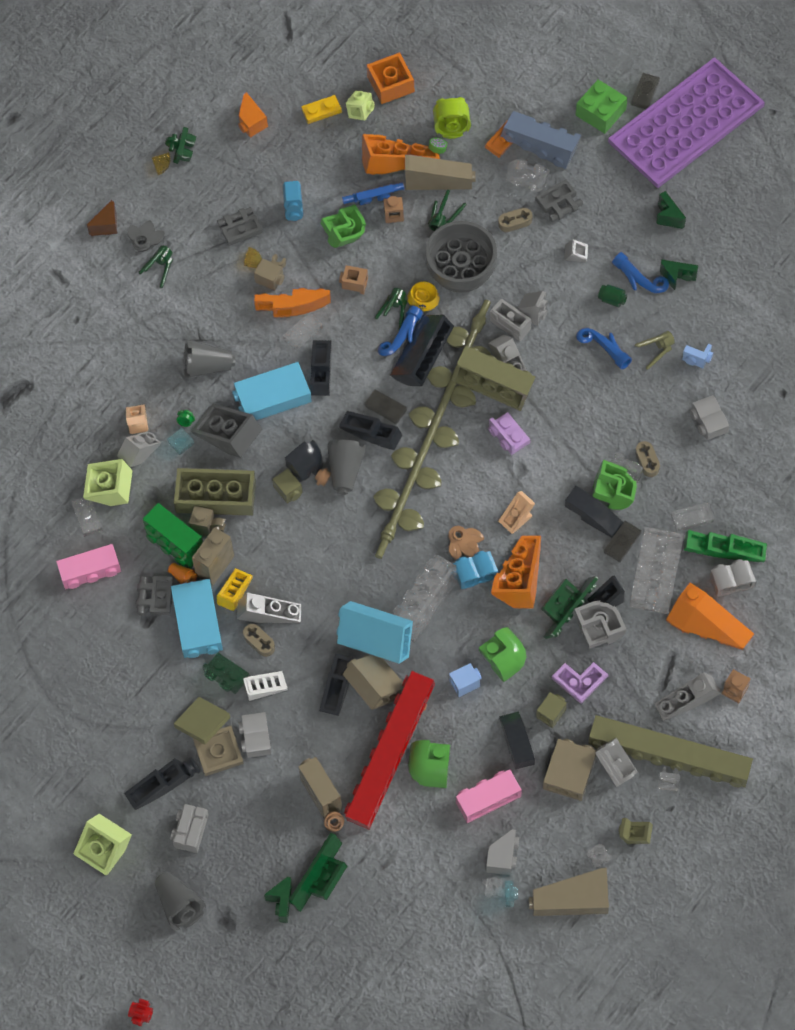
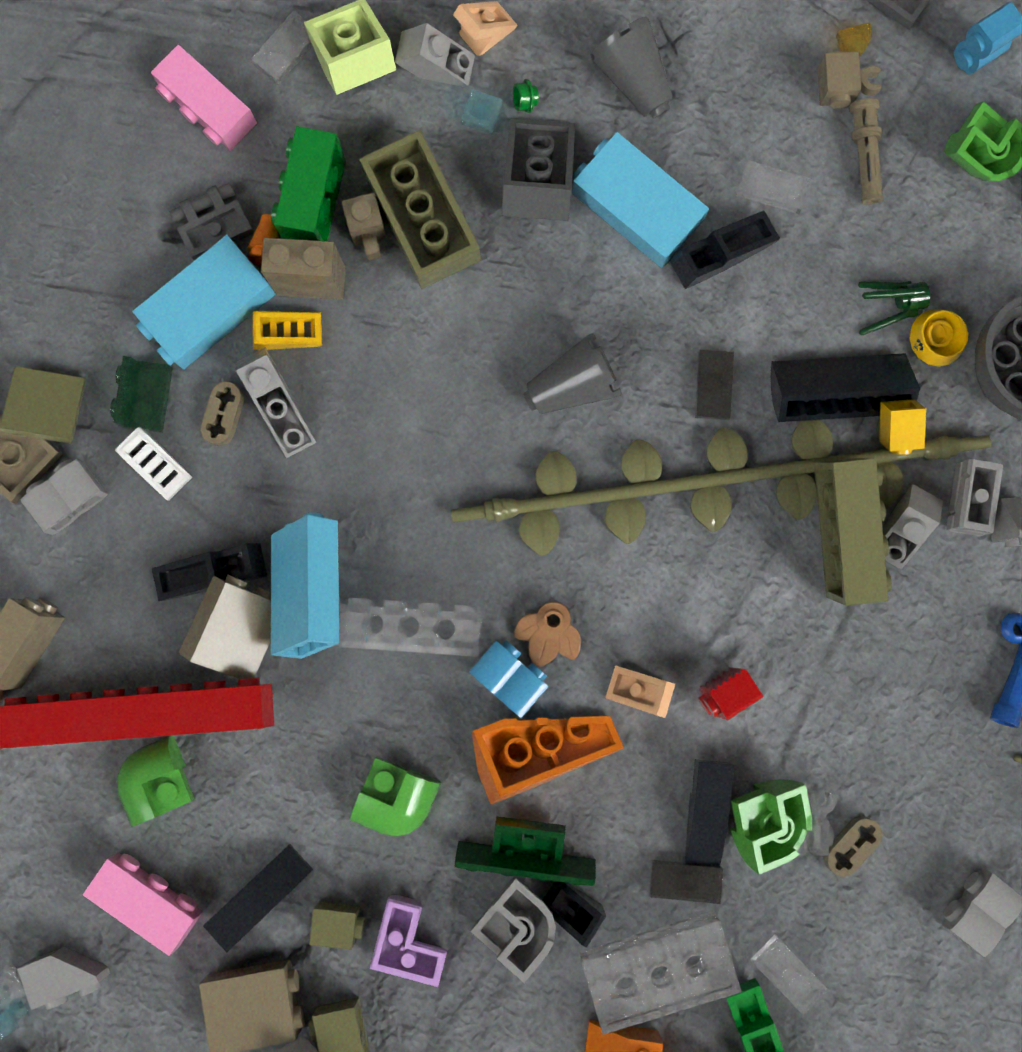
camera: 60 degrees right, 20 degrees up
(287, 486) = (493, 313): olive brick -> none
(299, 303) = (817, 153): orange slope -> none
(303, 279) = (863, 135): none -> dark tan pin
(304, 460) = (544, 316): black brick -> none
(322, 477) = (538, 357): medium nougat plate -> none
(354, 279) = (915, 207): medium nougat brick -> none
(371, 430) = (660, 385): black slope -> none
(412, 317) = (896, 340): blue plant -> none
(457, 331) = (902, 426): none -> yellow brick
(465, 679) = (315, 763): light blue brick -> none
(509, 433) = (774, 601): lavender bracket -> none
(540, 471) = (729, 693): none -> red brick

